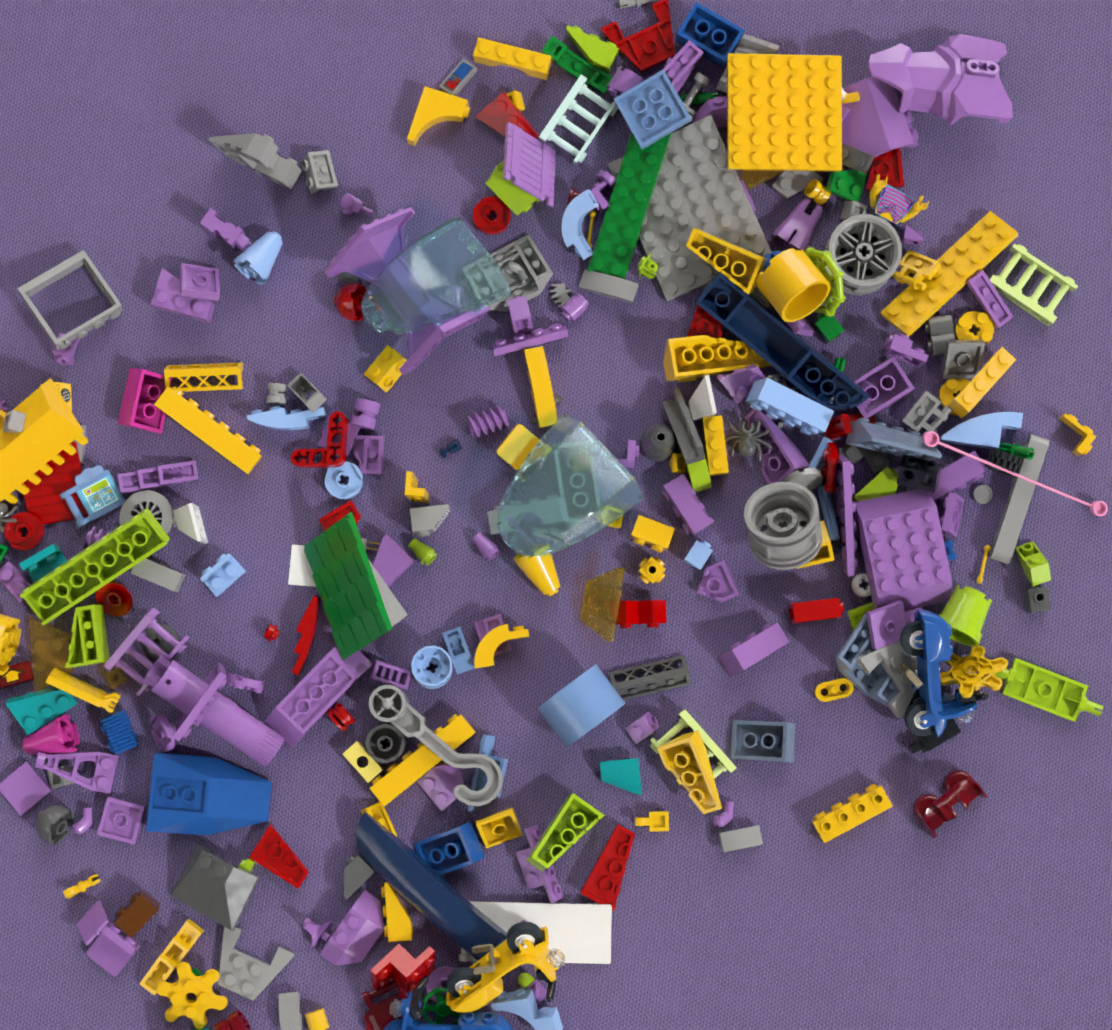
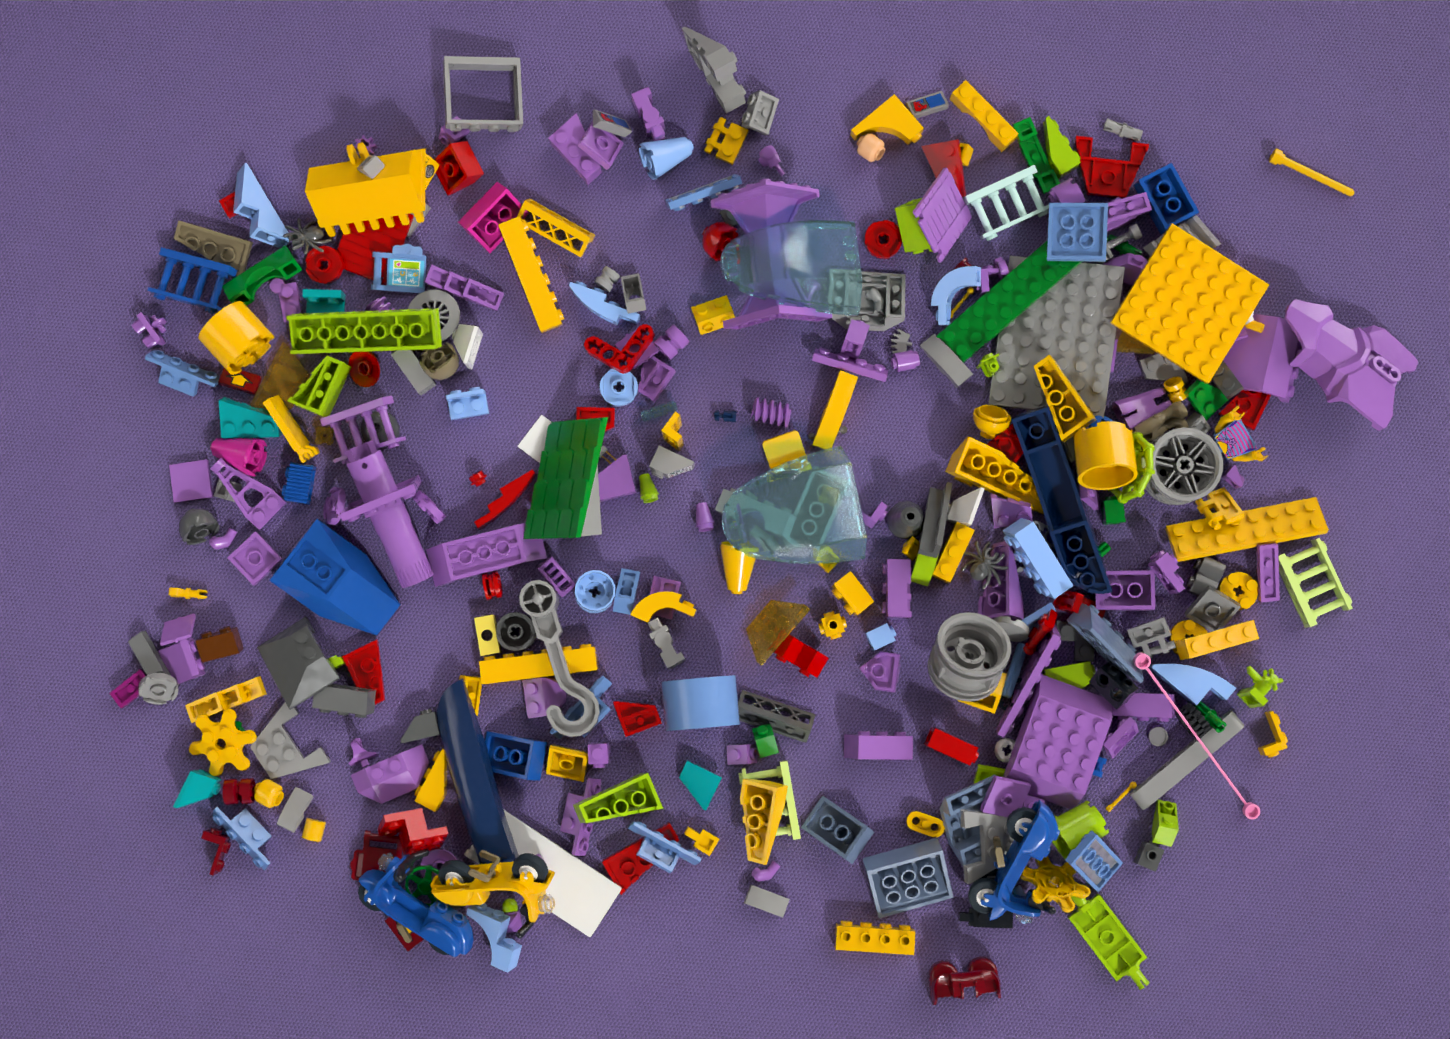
camera: 30 degrees right, 0 degrees up
(82, 963) = (147, 654): none -> dark grey hinge
(84, 998) = (128, 690): none -> magenta plate
(88, 376) = (457, 167): none -> red slope
(107, 983) = (158, 688): none -> light grey tile
(178, 553) = (440, 362): none -> dark tan cylinder
(197, 258) = (611, 123): none -> light grey slope
(258, 1014) = (268, 793): none -> yellow head
(275, 893) = (345, 700): none -> dark grey brick
(311, 213) = (731, 143): none -> yellow plate
(318, 263) = (711, 190): none -> medium blue piece
(390, 479) = (659, 410): none -> clear light blue axle
(432, 144) = (870, 147): none -> light nougat head
(517, 672) = (664, 641): none -> light grey hips
(521, 803) = (599, 754): none -> medium lavender brick
(533, 751) = (636, 716): none -> red wing
(624, 852) = (660, 850): none -> medium blue bracket
(655, 703) = (765, 740): none -> green brick
(678, 313) = (991, 420): none -> yellow piece
(821, 228) = (1158, 423): none -> dark tan piece
(847, 744) = (908, 877): none -> sand blue slope
(994, 632) = (1094, 861): none -> medium blue piece
(1041, 410) = (1255, 695): none -> lime piece

